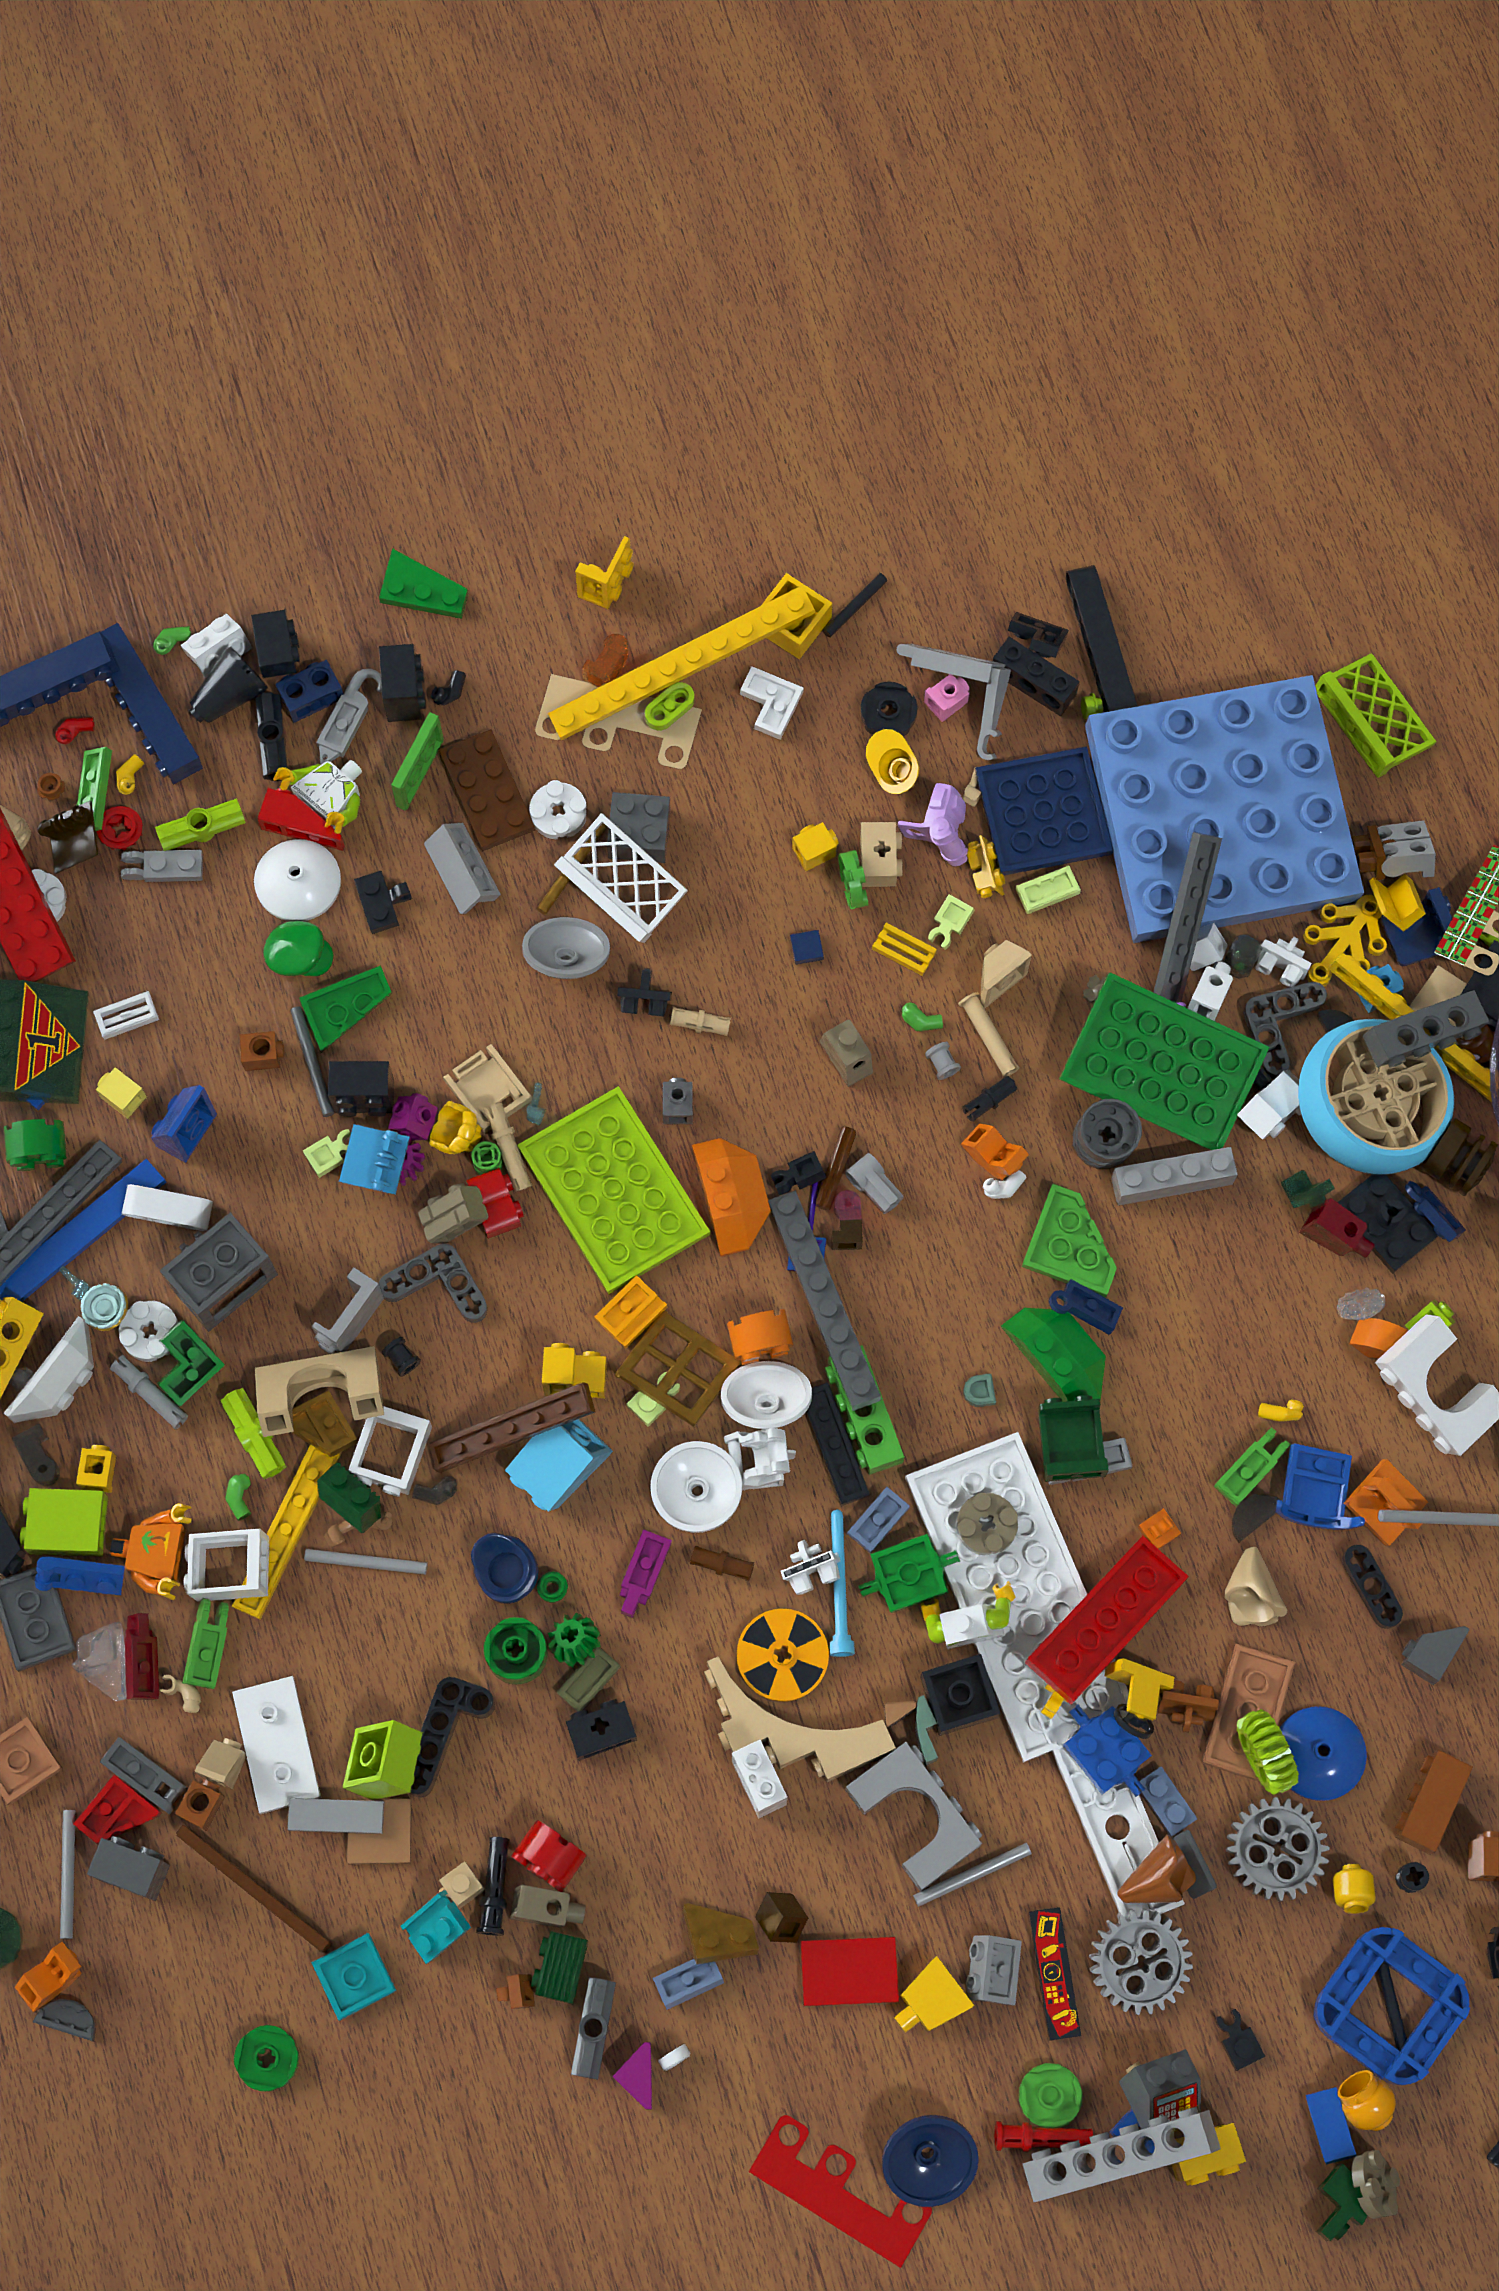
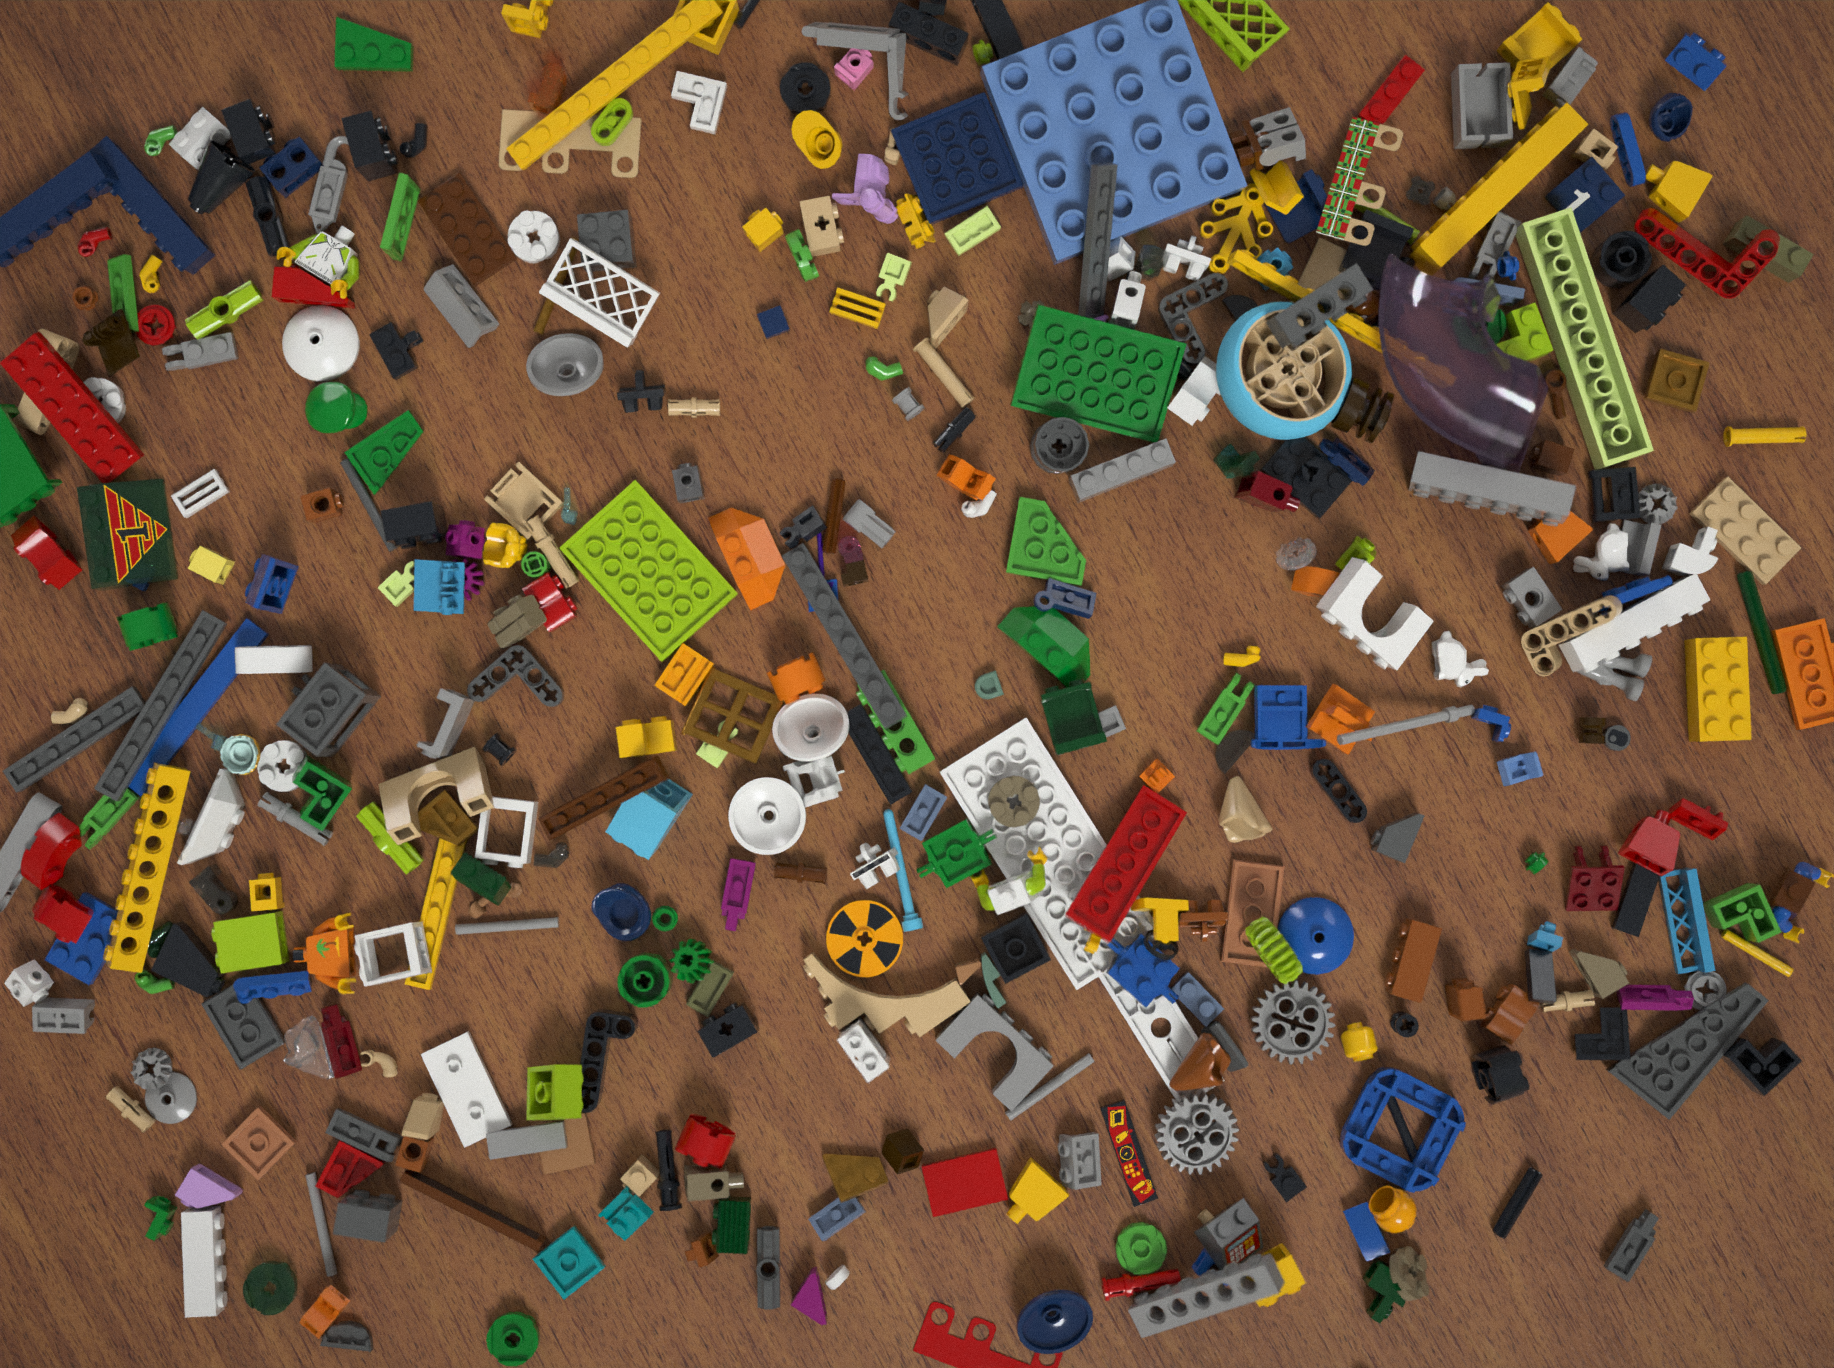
camera: 10 degrees left, 15 degrees up
(206, 1646) = (391, 1022): bright green hinge -> none
(234, 1495) = (386, 891): bright green arm -> none
(845, 1050) = (825, 413): dark tan torso -> none

